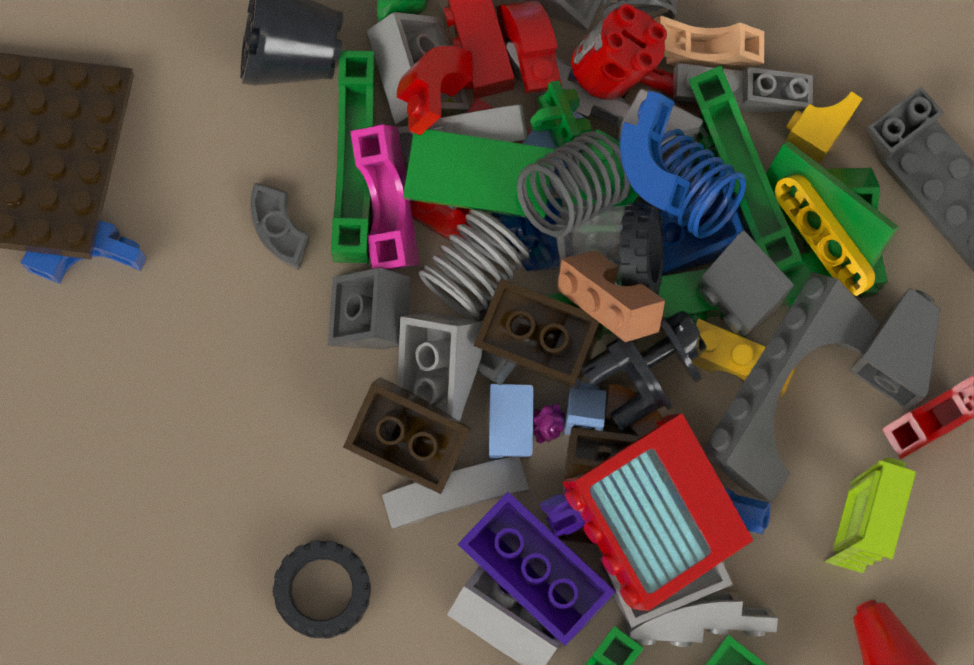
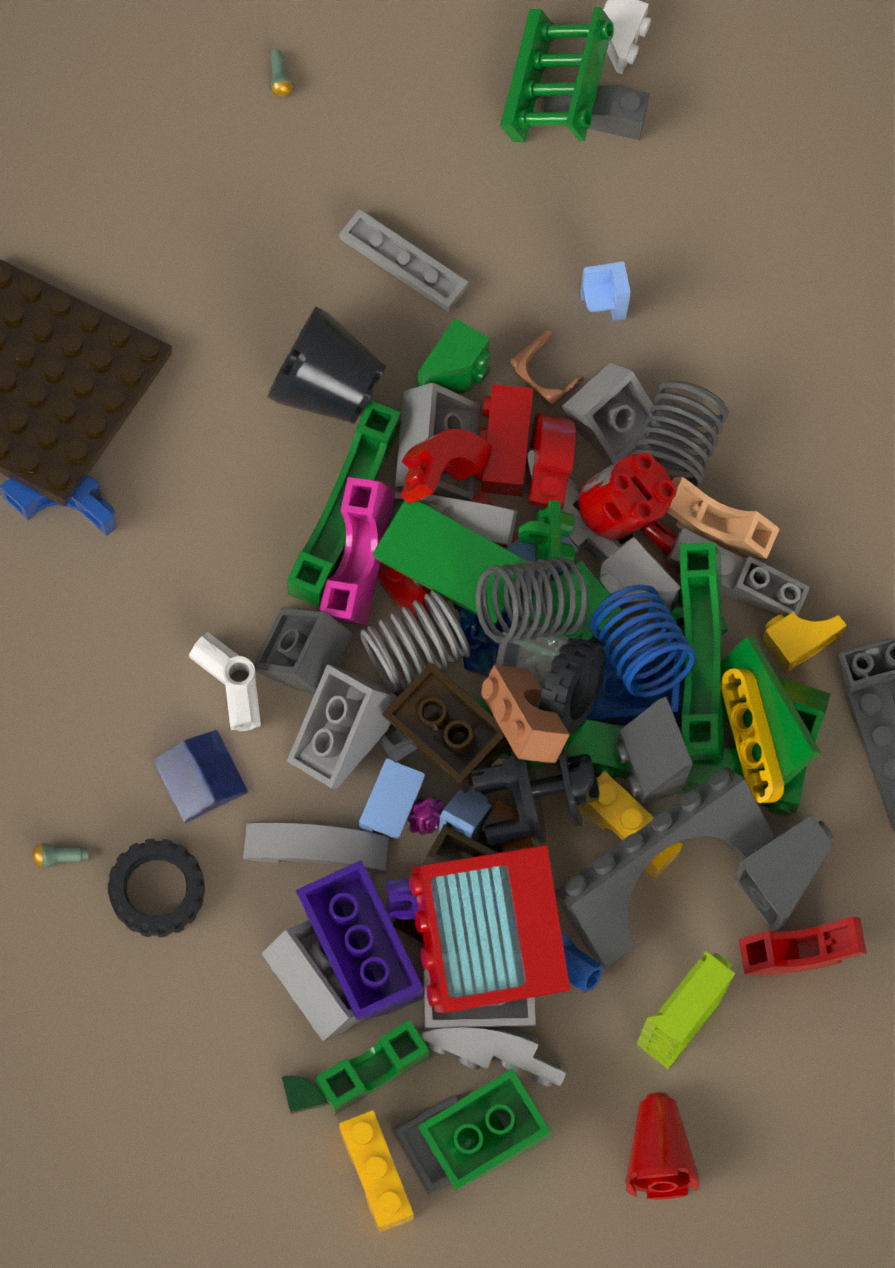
camera: 20 degrees right, 5 degrees down
(205, 598) = (46, 855): none -> sand green piece
(275, 227) = (246, 540): dark grey tile -> none
(319, 465) = (200, 775): none -> clear blue slope
(330, 376) = (222, 663): none -> white piece
(407, 435) = (289, 774): dark brown slope -> none
(643, 158) = (604, 598): blue arch -> none

